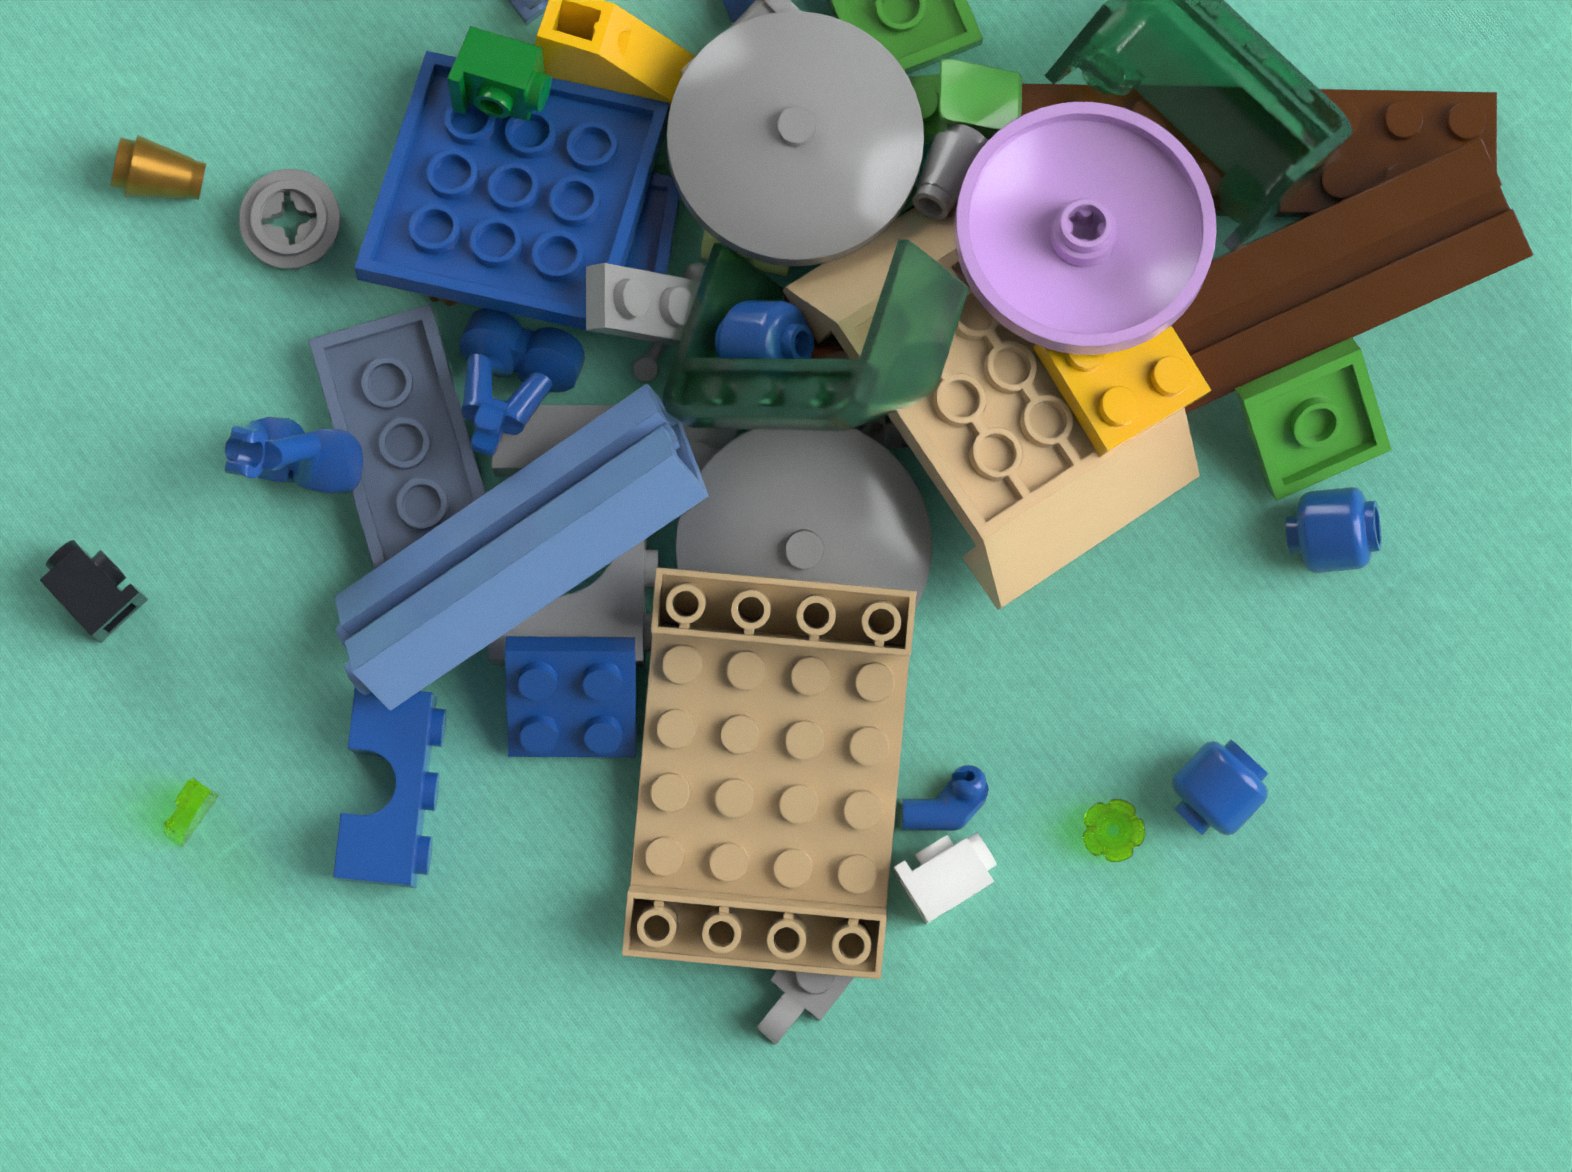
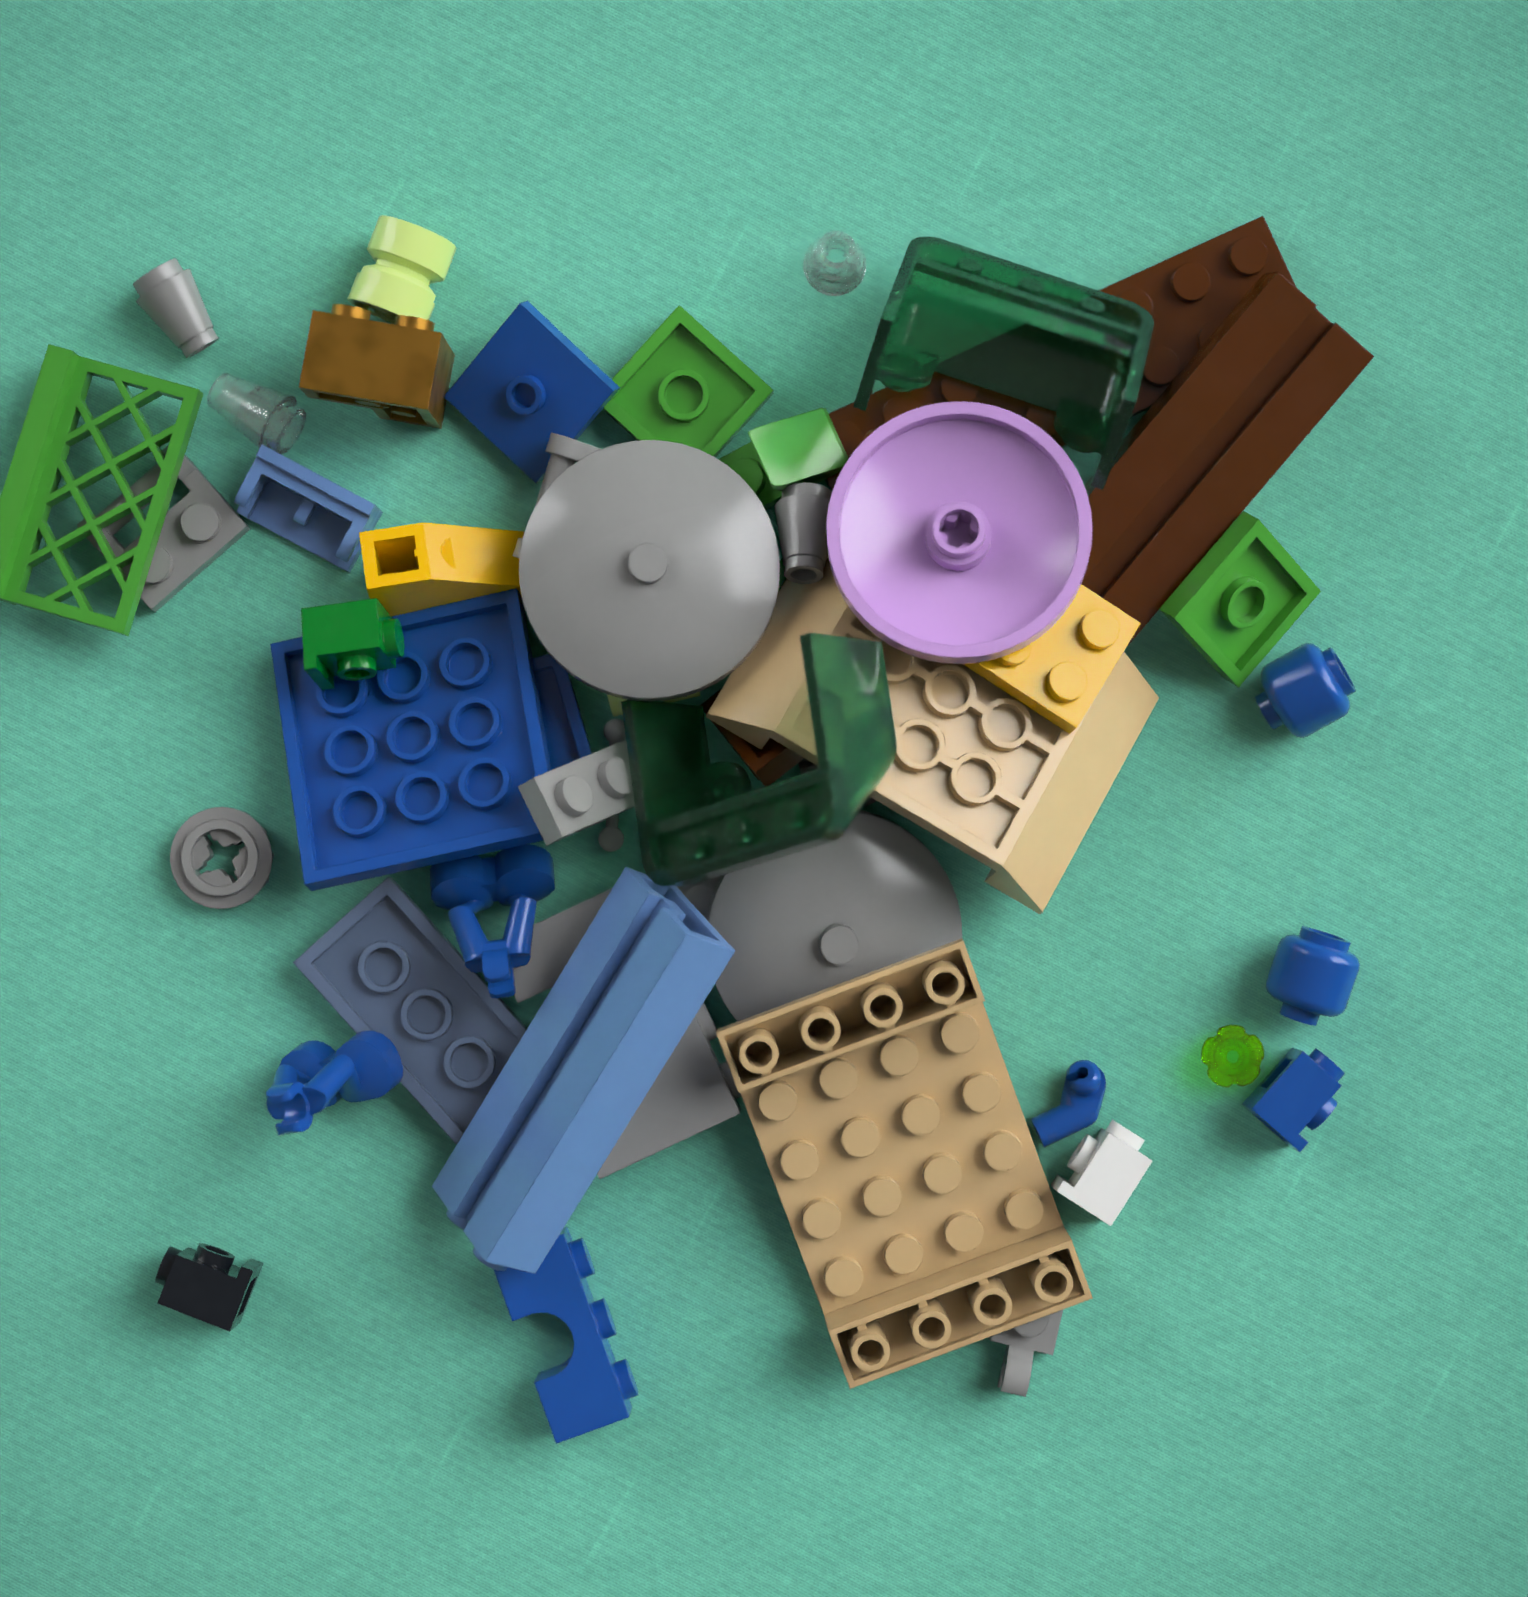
camera: 25 degrees left, 5 degrees up
(155, 171) = (77, 872): pearl gold cone -> none
(193, 804) = (395, 1437): clear neon green tile -> none
(571, 696) = (690, 1175): blue plate -> none
(764, 332) = (711, 769): blue head -> none
(1154, 891) = (1296, 1095): none -> blue brick

